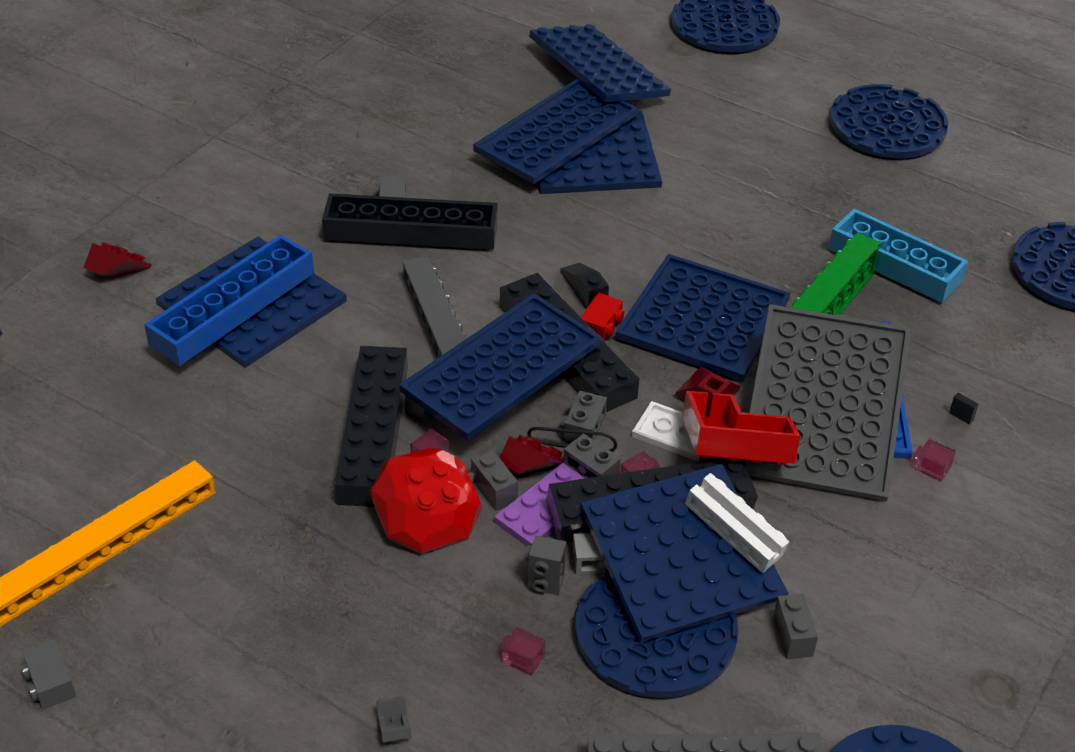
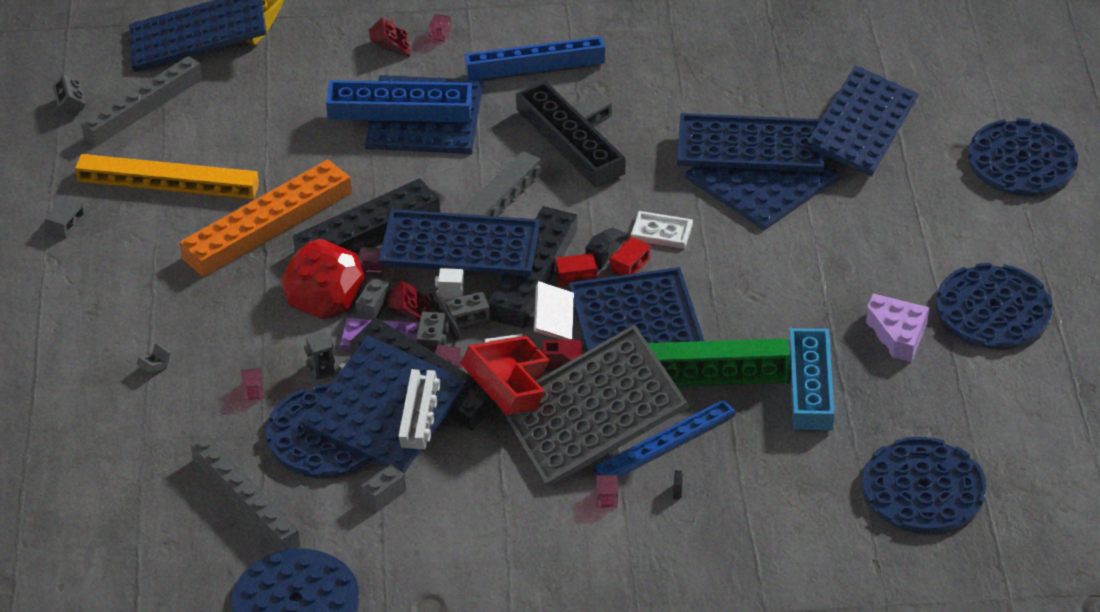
camera: 55 degrees right, 0 degrees up
(146, 222) = (440, 27): none -> clear pink brick
(268, 501) = (265, 218): none -> orange brick
(276, 189) = (535, 58): none -> blue brick
(547, 409) = (450, 284): none -> white brick
(597, 241) = (662, 229): none -> white tile
(621, 276) = (630, 257): none -> red brick
(651, 361) = (553, 312): none -> white tile
(870, 176) = (897, 325): none -> lavender brick

